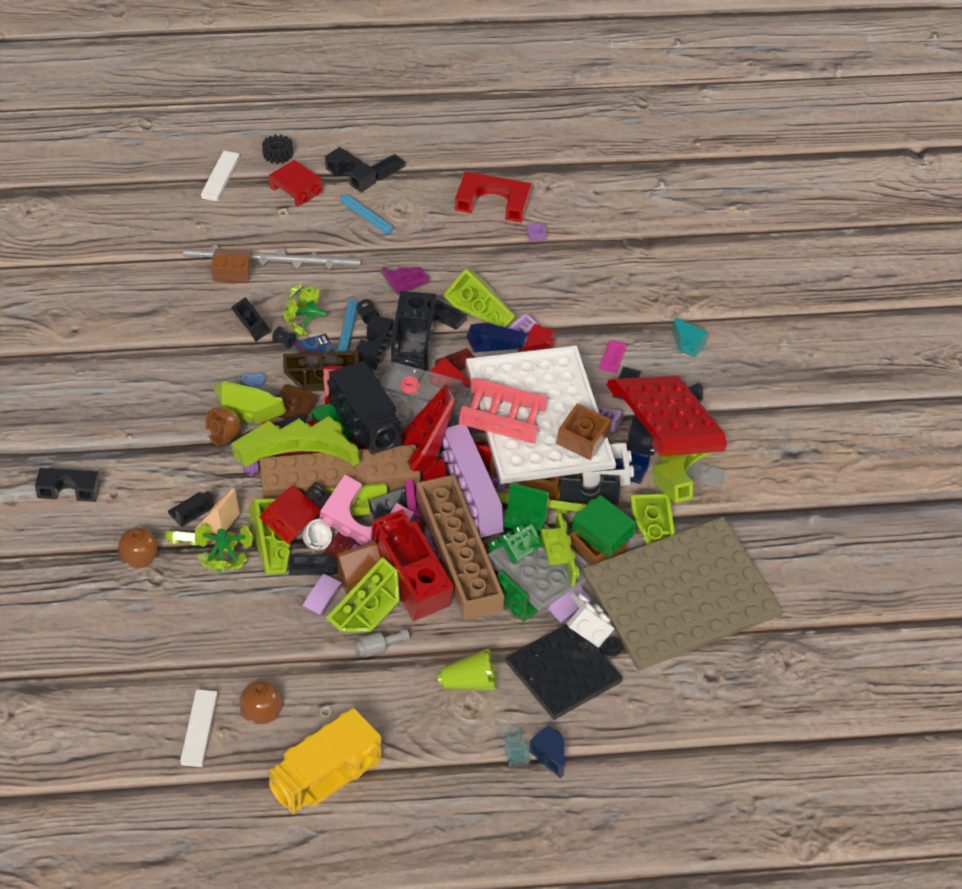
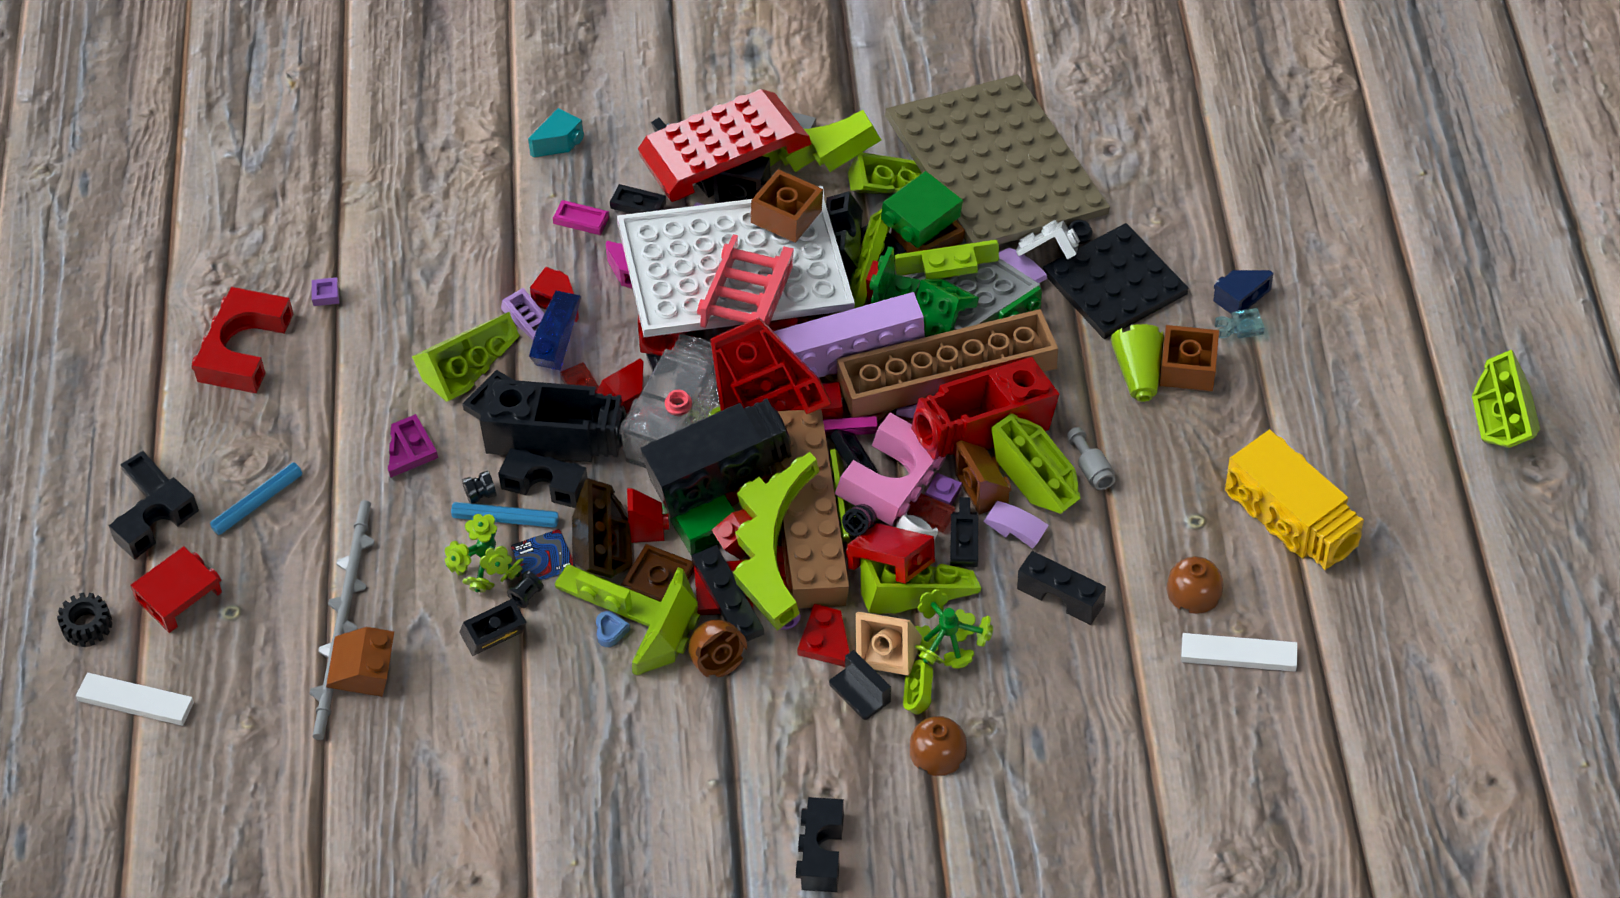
camera: 85 degrees left, 5 degrees up
(245, 489) = (824, 636): none -> red wing
(251, 626) = (1080, 594): none -> black arch
(272, 376) = (607, 595): none -> lime bracket
(473, 705) = (1189, 358): none -> dark orange brick

